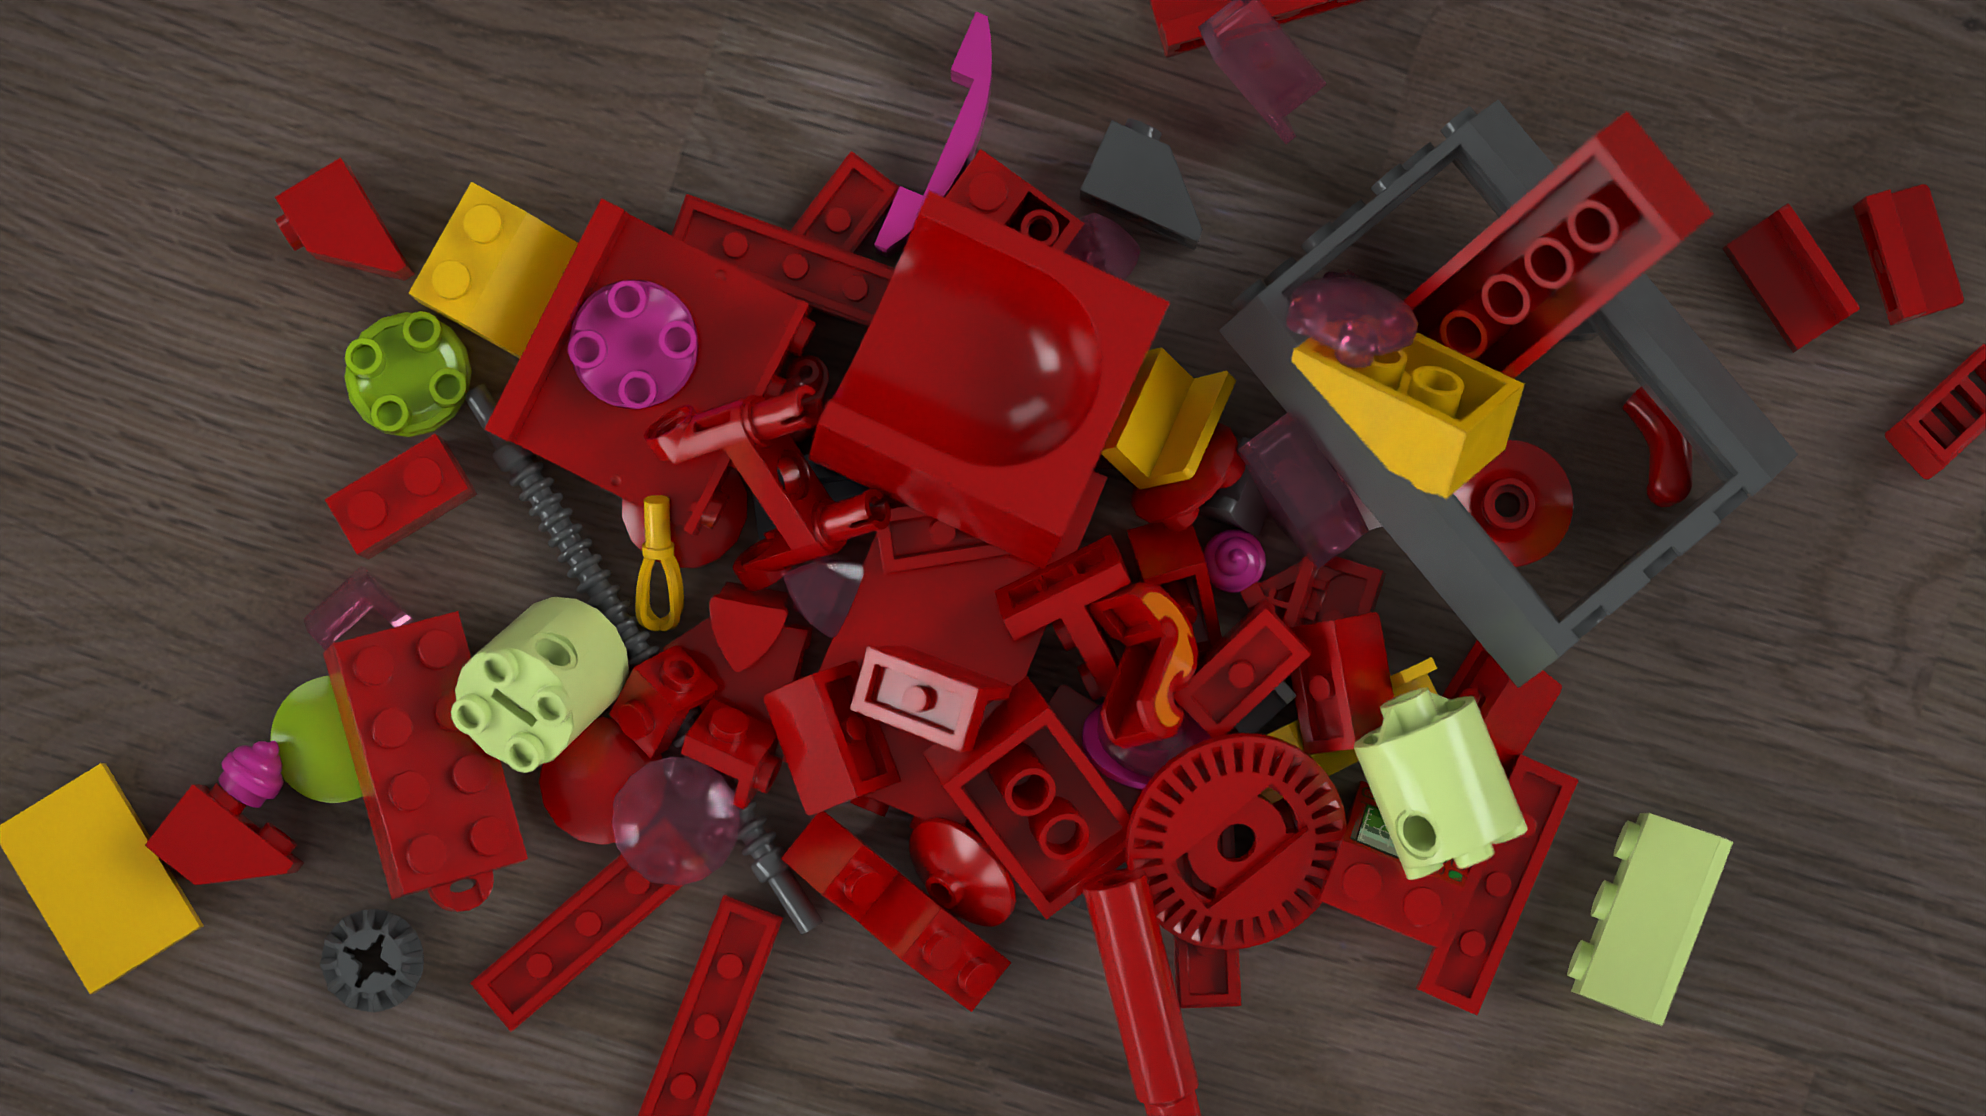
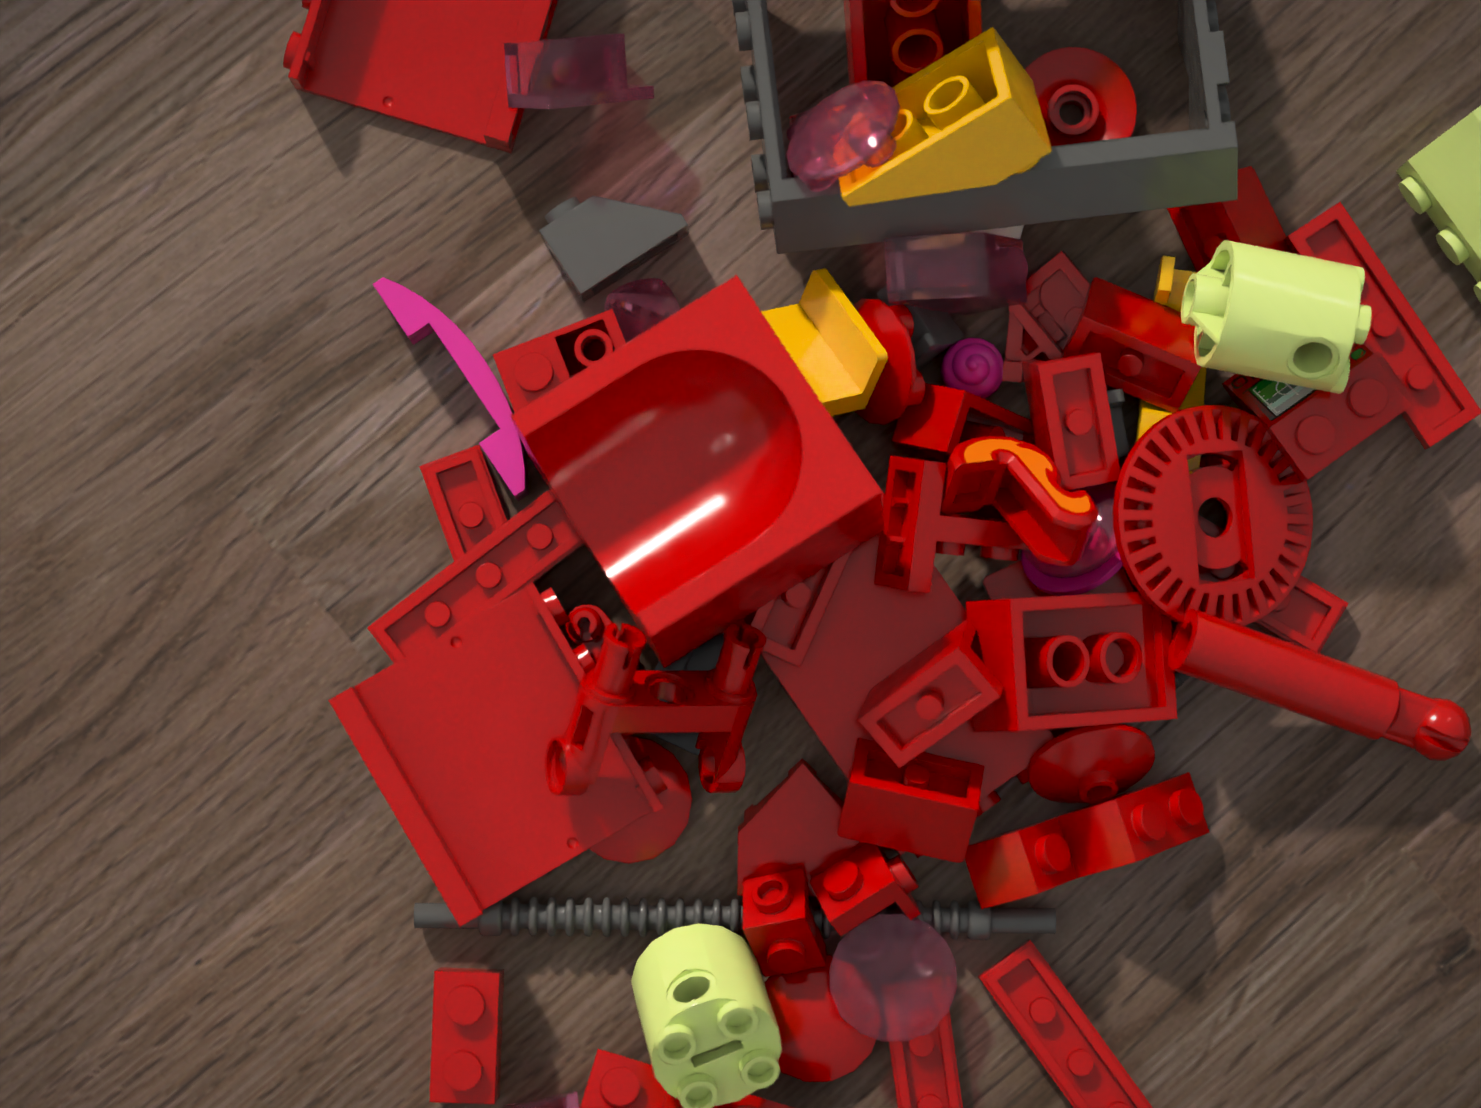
camera: 60 degrees left, 0 degrees up
(339, 223) = (198, 938): red slope -> none
(407, 374) = (364, 963): lime dish -> none
(494, 269) = (327, 830): yellow slope -> none
(633, 344) = (468, 753): dark pink dish -> none
(658, 547) = (651, 845): yellow piece -> none
(746, 622) = (764, 809): red tile -> none
(824, 591) = (782, 726): clear pink tile -> none

